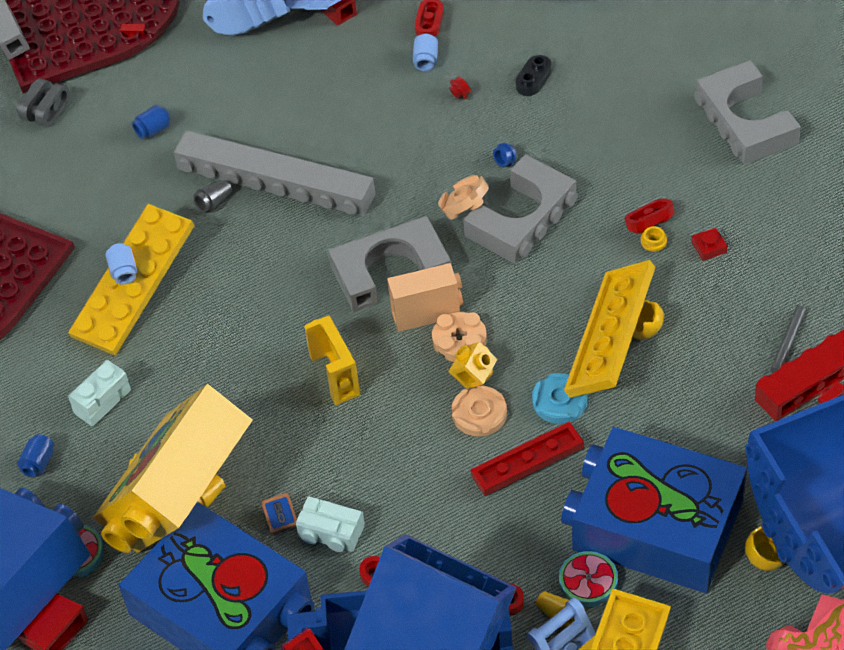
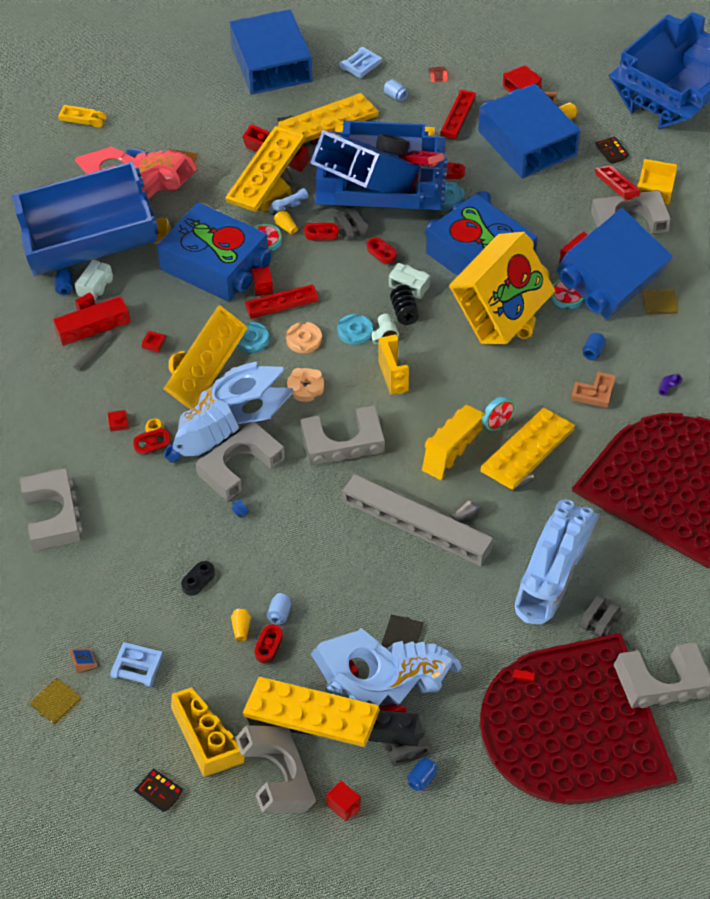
camera: 175 degrees left, 0 degrees up
(35, 381) = (596, 394): none -> nougat plate
(89, 117) = (553, 561): none -> light blue animal
(99, 393) = (551, 376): light aqua brick -> none
(121, 263) = (534, 437): light blue brick -> none
(151, 122) = (509, 580): blue brick -> none
(172, 312) = (498, 413): none -> tile
(234, 273) = (451, 440): none -> yellow wedge
(276, 59) = (402, 630): none -> clear smoke piece
(279, 513) = (439, 296): slope -> none
(332, 475) = (404, 305): none -> black piece
(352, 432) = (386, 328): none -> light aqua piece
(404, 437) = (355, 329): none -> medium azure tile
(424, 296) = (323, 396): light nougat brick -> none
(459, 88) = (259, 572): red plate -> none
(466, 32) = (240, 623): none -> yellow cone
(467, 195) = (269, 472): light nougat plate -> none
(473, 365) = (301, 354): yellow brick -> none
(562, 254) = (221, 407): none -> light blue animal
(562, 479) = (262, 281): none -> red brick
(615, 205) = (171, 454): none -> blue plate
(702, 360) = (153, 341): none -> red plate

